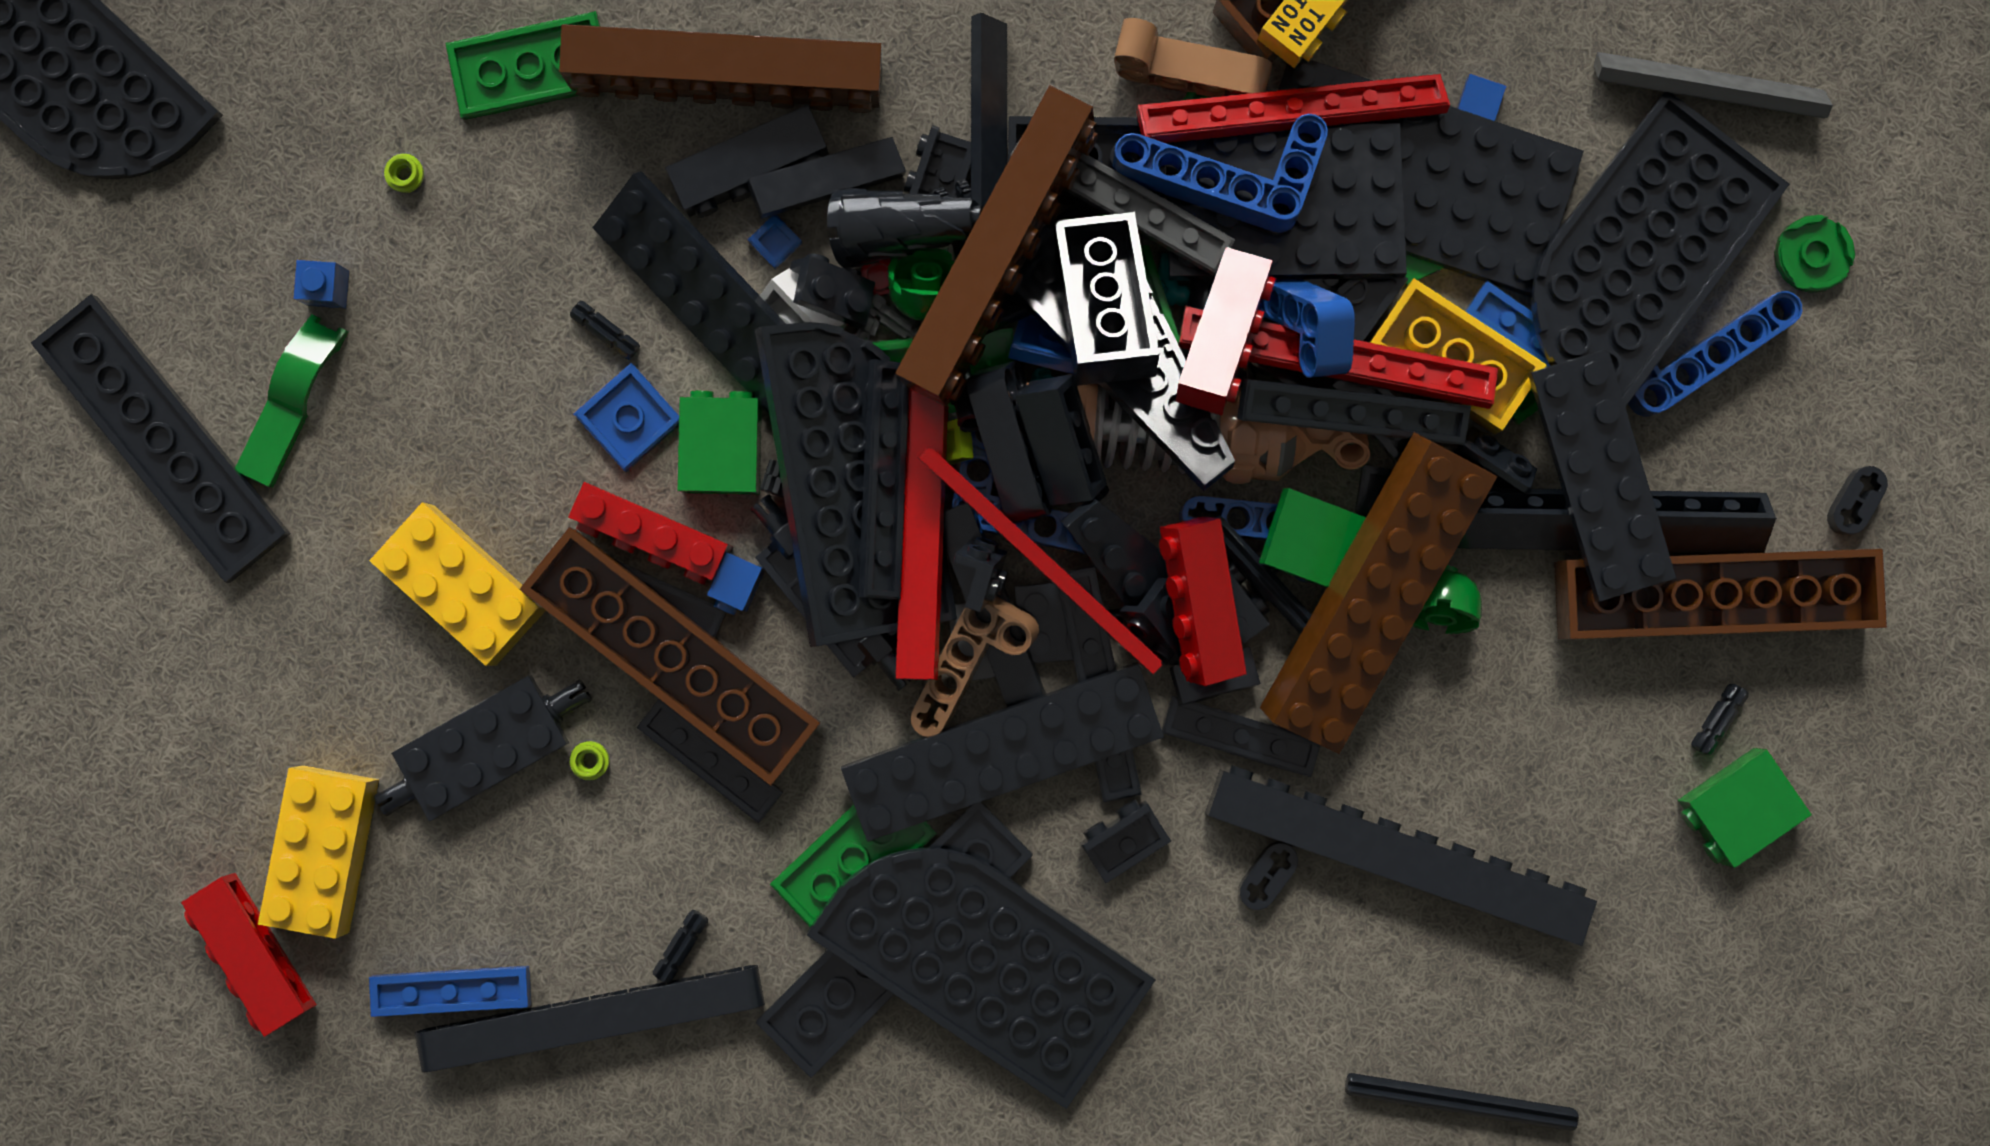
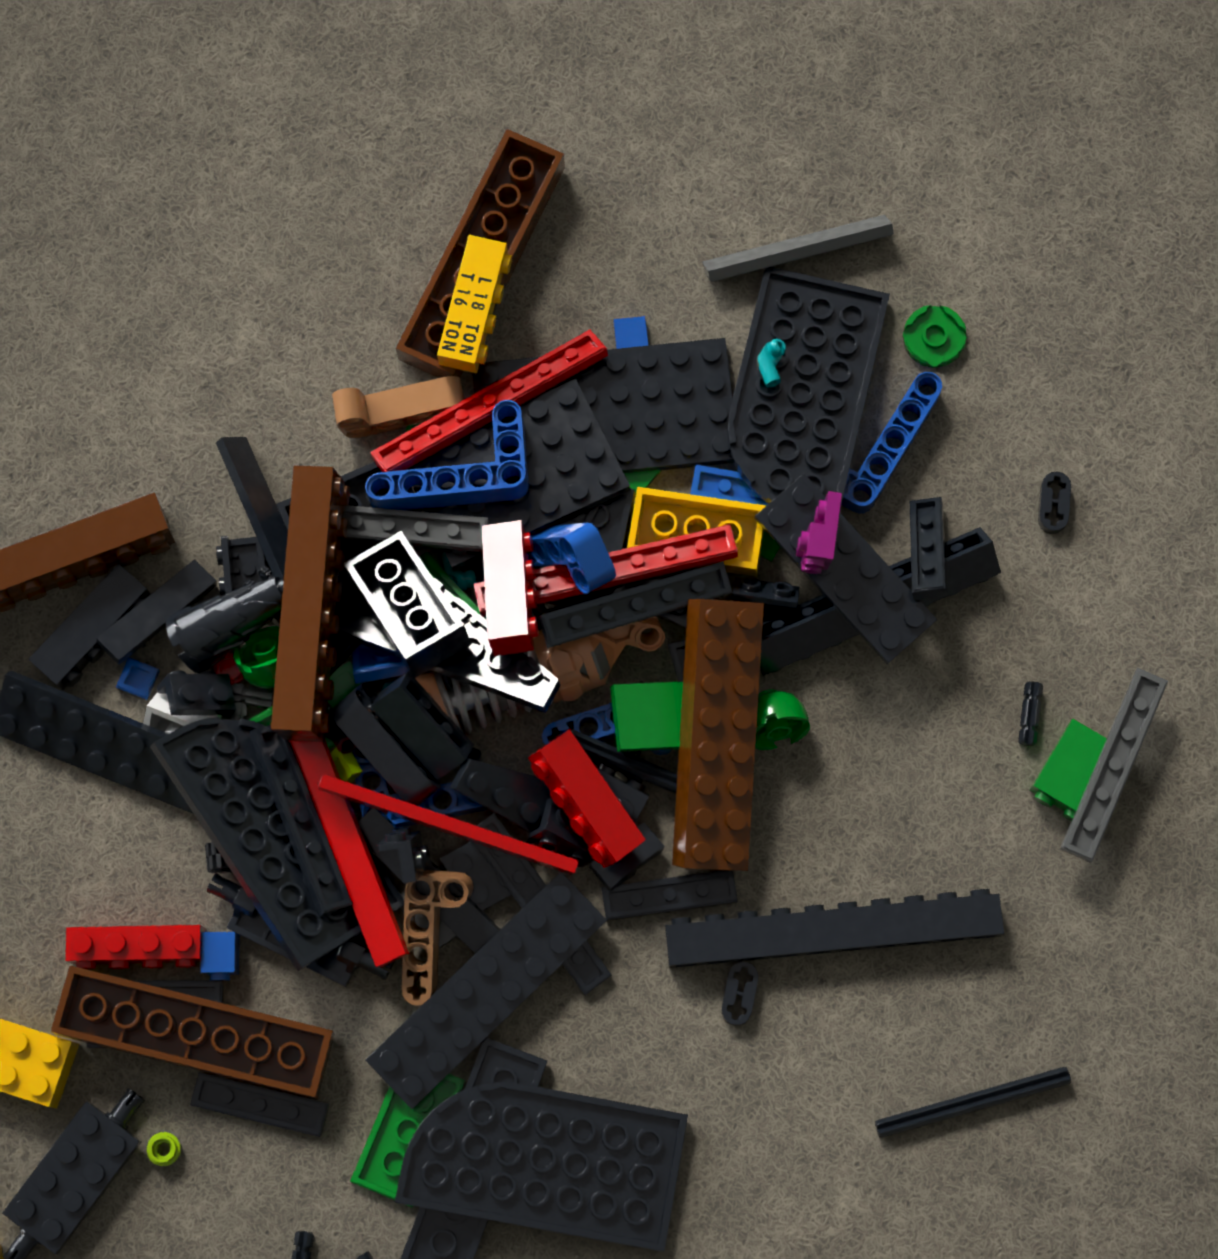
camera: 20 degrees left, 10 degrees down
(604, 330) = (33, 806): black axle -> none
(628, 417) = (80, 865): blue tile -> none
(719, 443) = (161, 852): green brick -> none
(1125, 840) = (614, 1017): black bracket -> none
(1595, 439) = (818, 542): none -> magenta plate
(1623, 200) = (768, 360): none -> teal arm
(1700, 493) = (927, 548): none -> black tile
(1732, 596) = (990, 617): reddish brown brick -> none
(1789, 821) = (1114, 765): none -> dark grey tile

